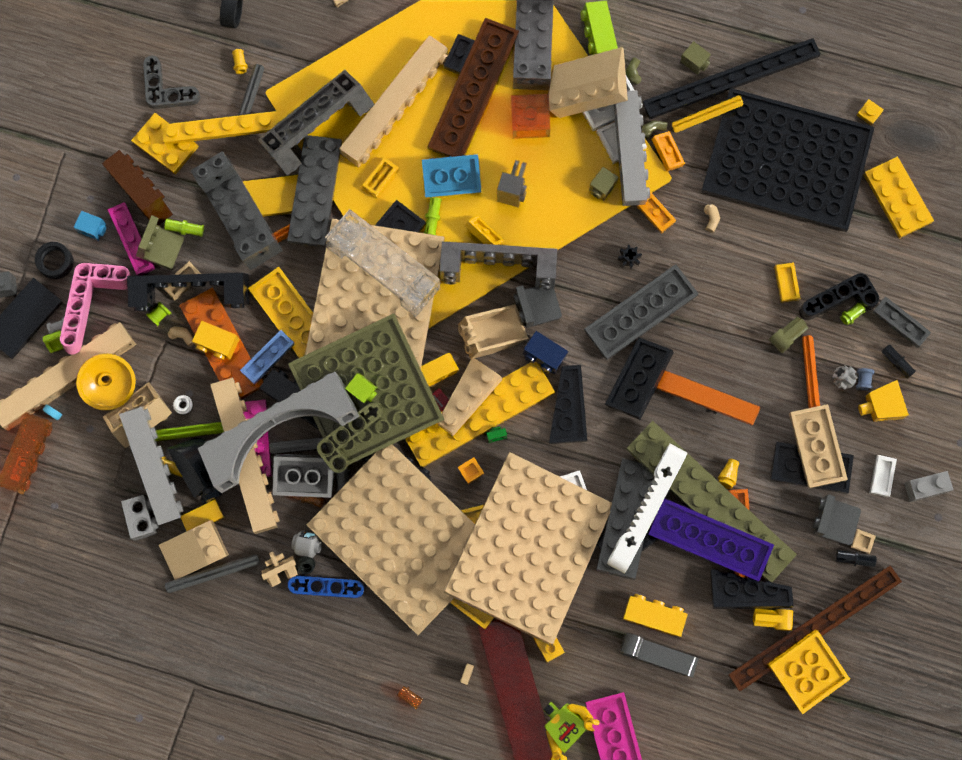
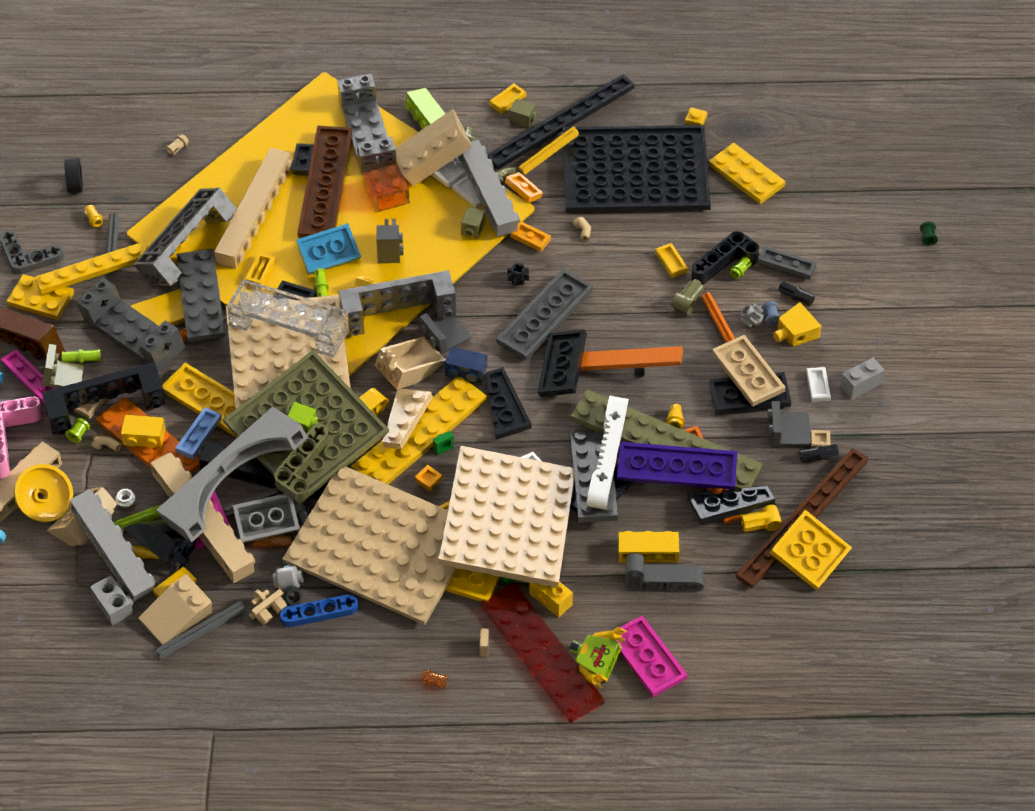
camera: 20 degrees left, 25 degrees down
(687, 32) = (506, 98): none -> yellow tile

